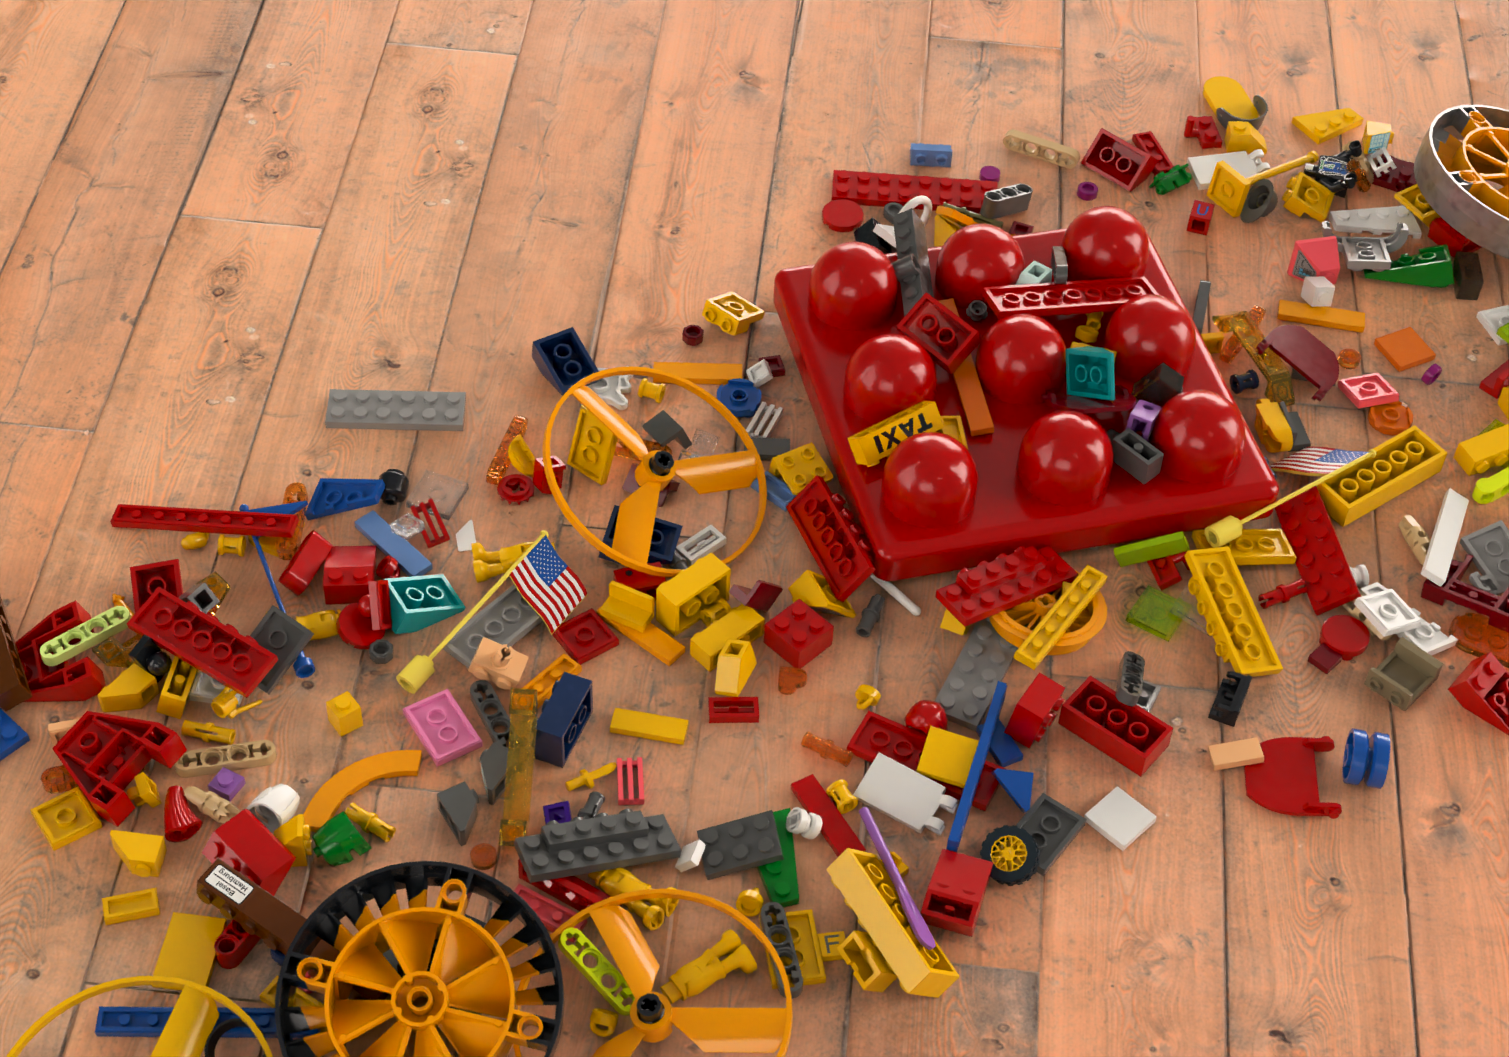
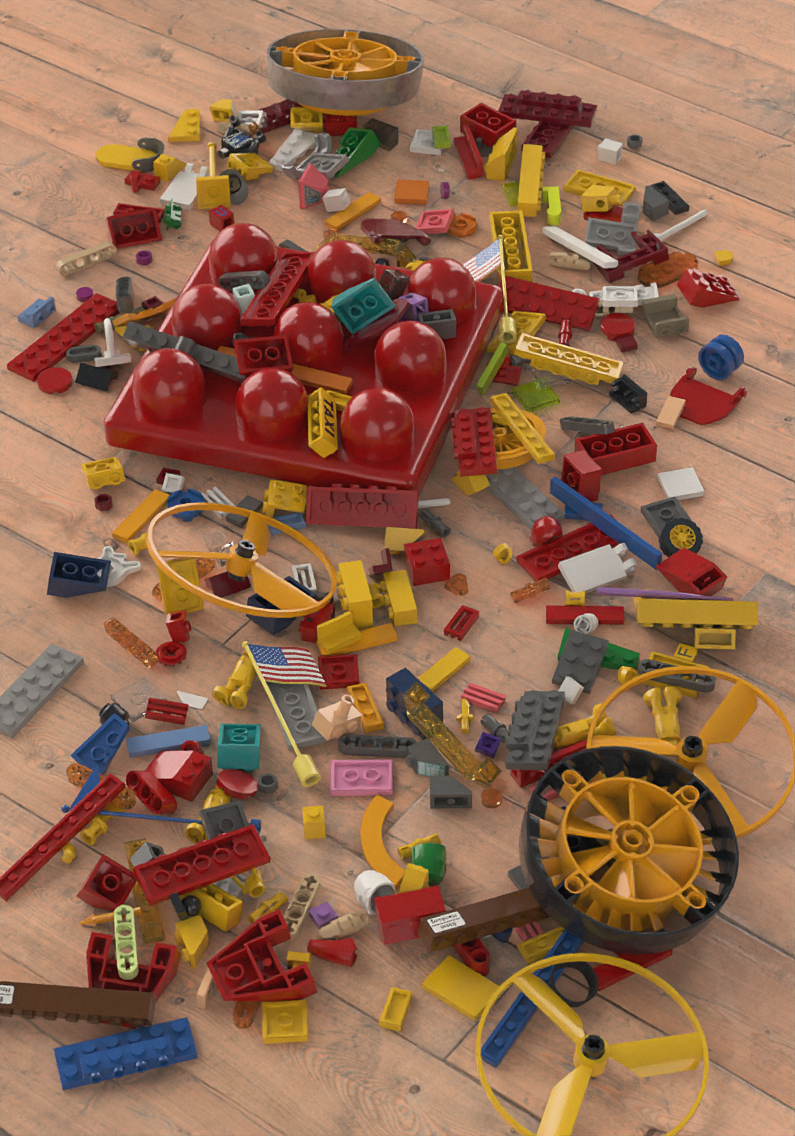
camera: 55 degrees left, 5 degrees down
(140, 852) = (354, 984): yellow slope -> none
(377, 605) = (235, 761): red tile -> none
(407, 526) = (164, 721): clear plate -> none
(521, 456) = (148, 634): yellow tile -> none
(665, 429) = (198, 543): dark grey panel -> none
(734, 667) = (433, 603): yellow slope -> none
(947, 757) = (587, 532): yellow tile -> none
(1017, 785) = (633, 513): blue slope -> none

